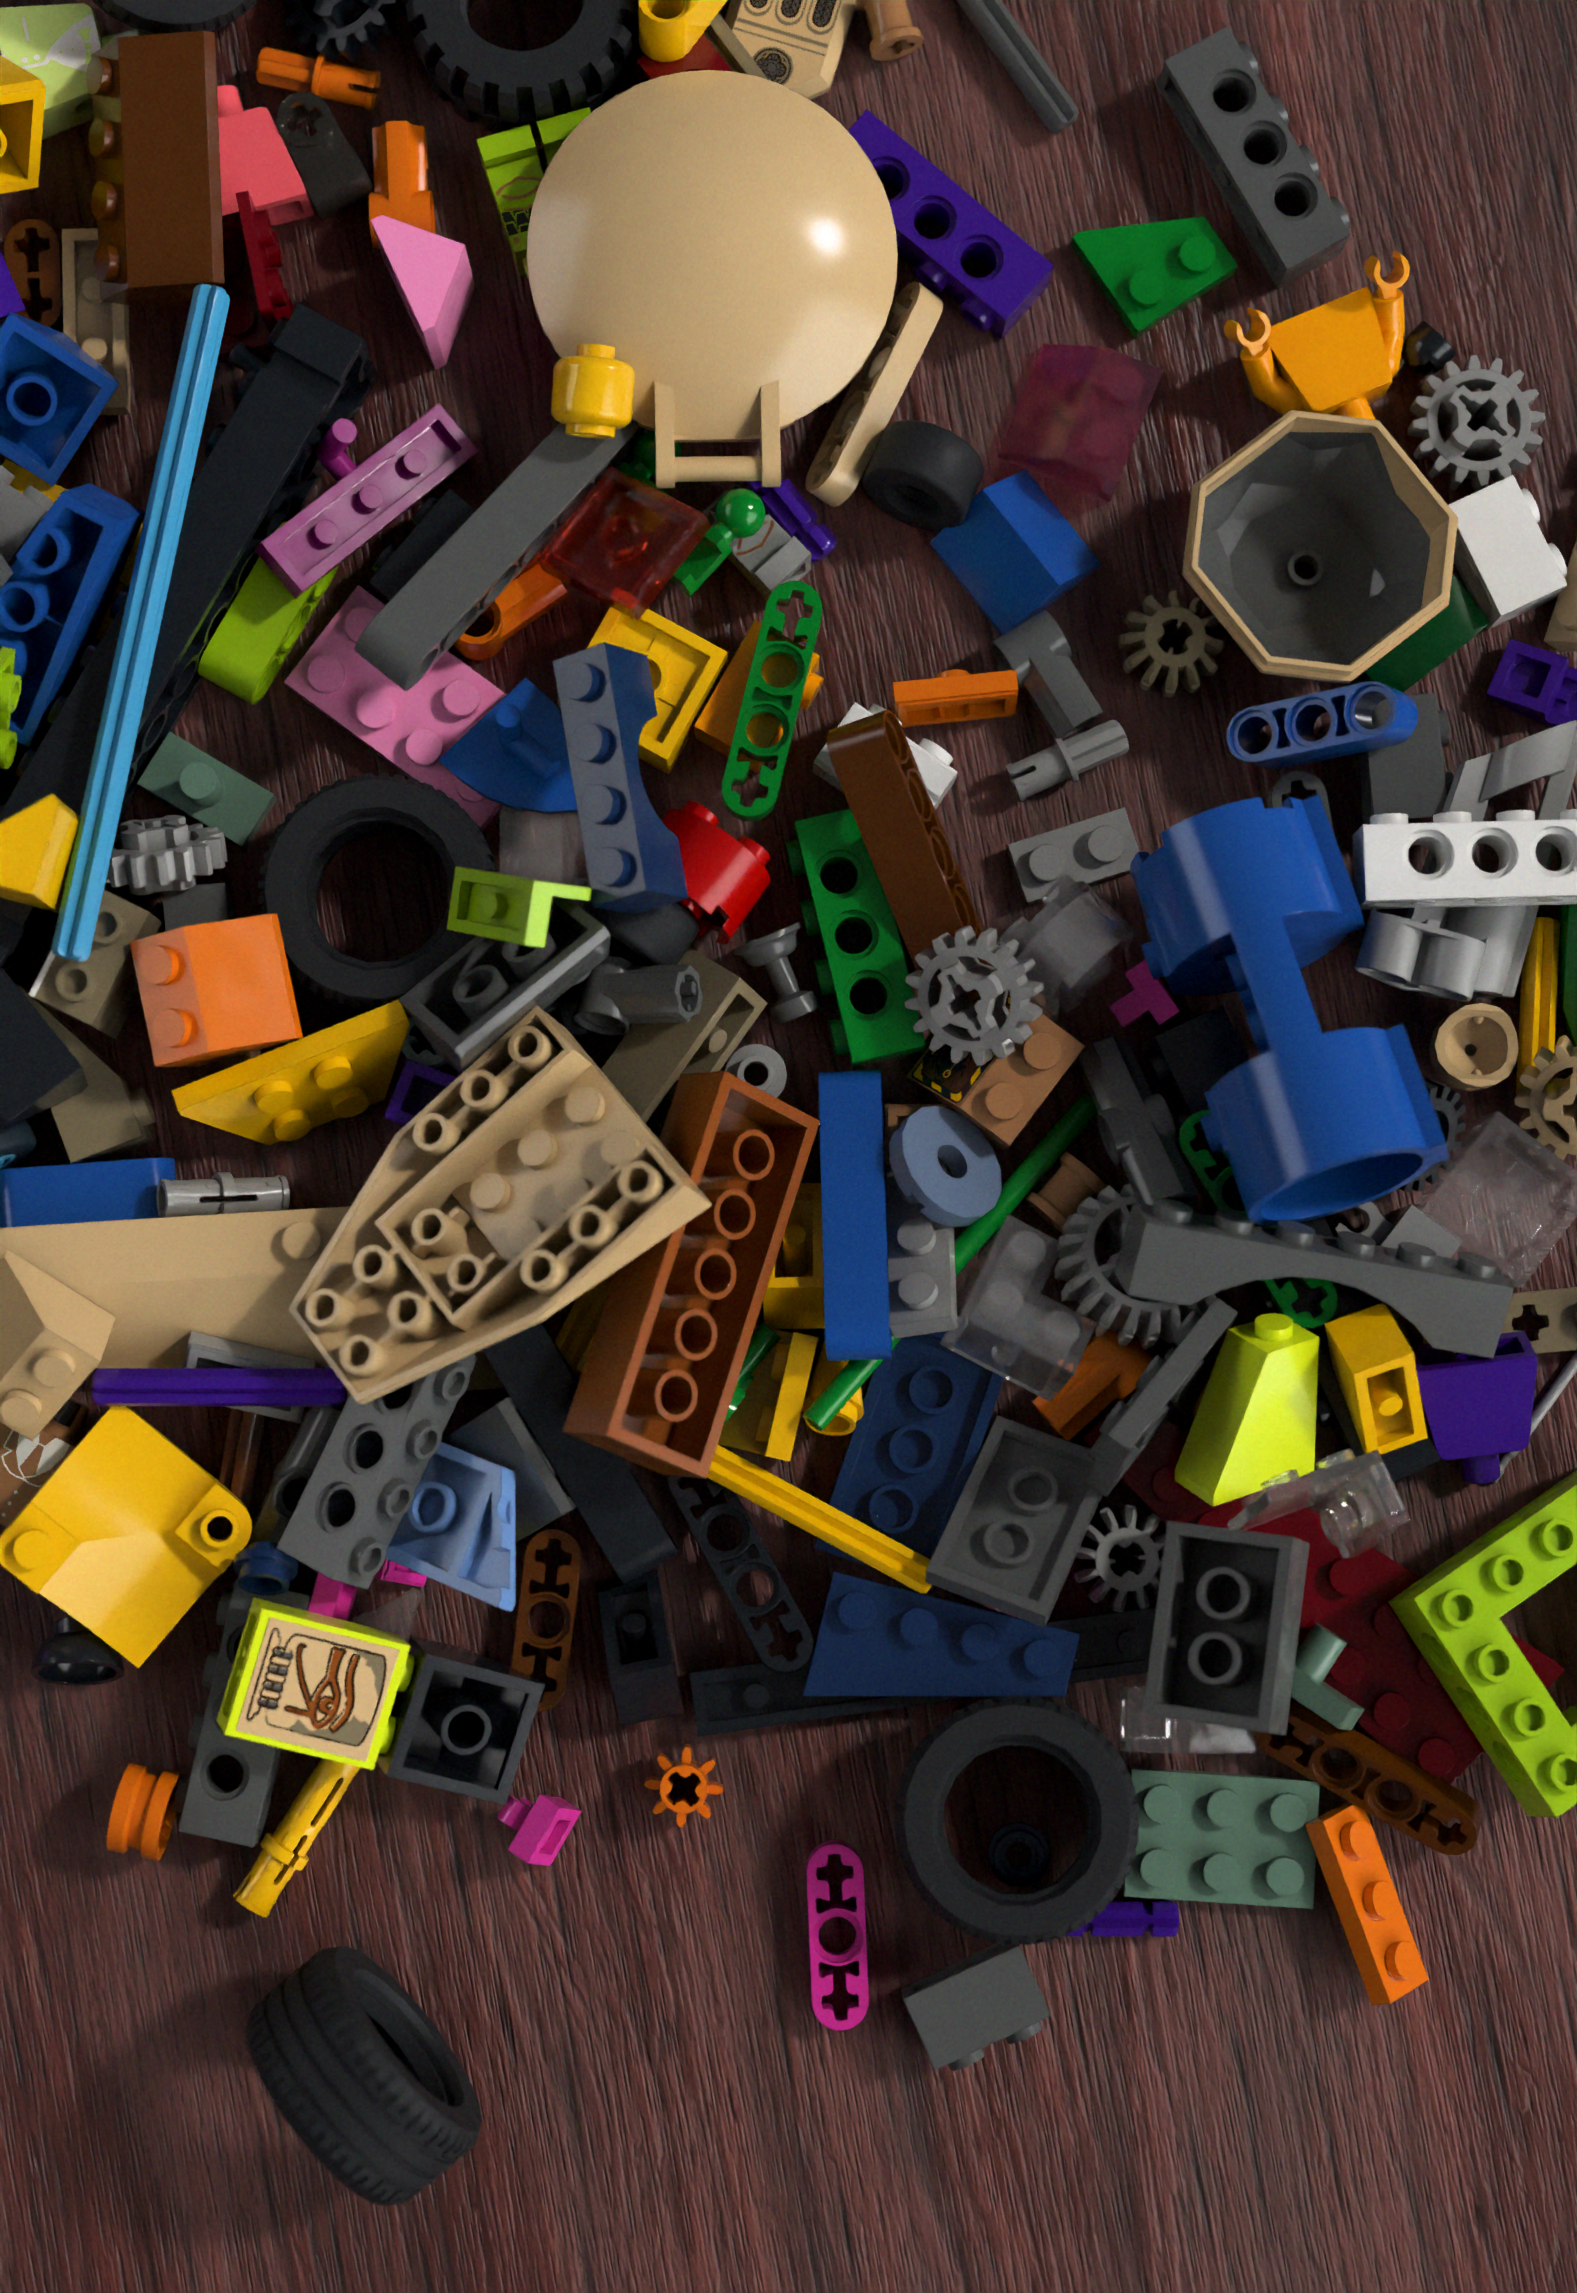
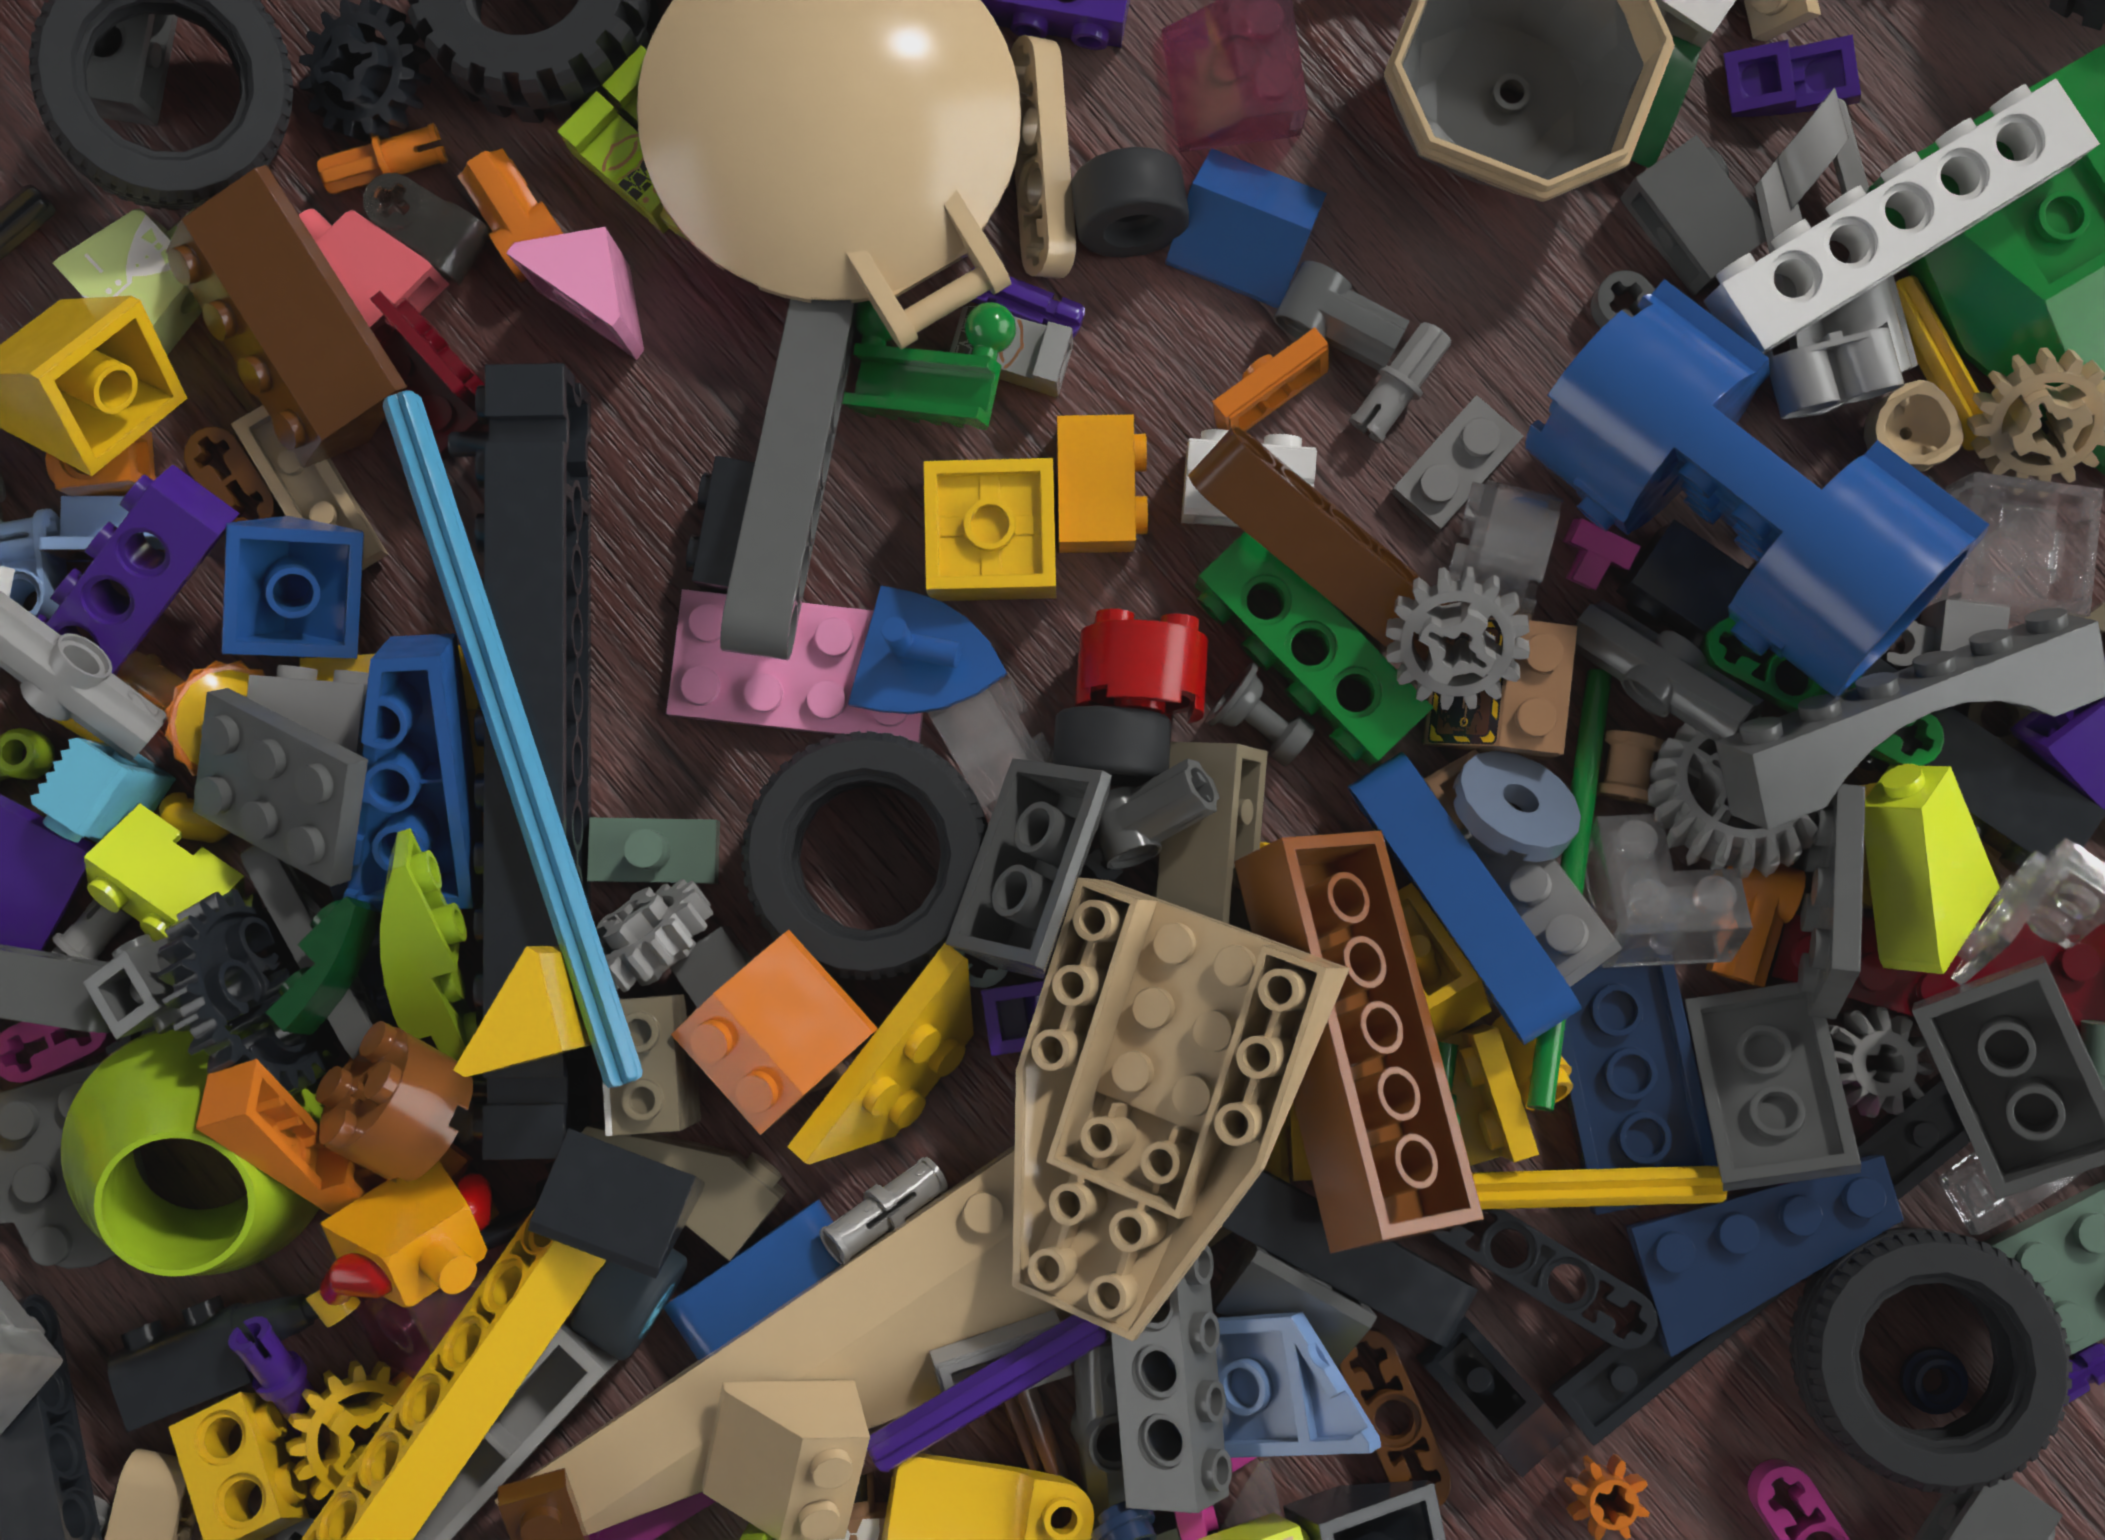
camera: 20 degrees left, 0 degrees up
(258, 633) = (617, 659): lime beam -> none
(364, 496) = (643, 507): magenta plate -> none
(506, 905) = (998, 801): lime panel -> none
(515, 608) = (840, 516): orange piece -> none
(592, 392) = (798, 293): yellow head -> none
(624, 543) = (902, 414): clear red tile -> none
(627, 848) = (983, 578): dark blue arch -> none
(761, 1055) = (1291, 799): light grey plate -> none
(767, 700) = (1110, 481): green beam -> none
(1149, 630) = (1453, 241): dark tan gear -> none
(1349, 730) = (1585, 228): blue beam -> none
(1377, 1379) = (2017, 771): yellow slope -> none

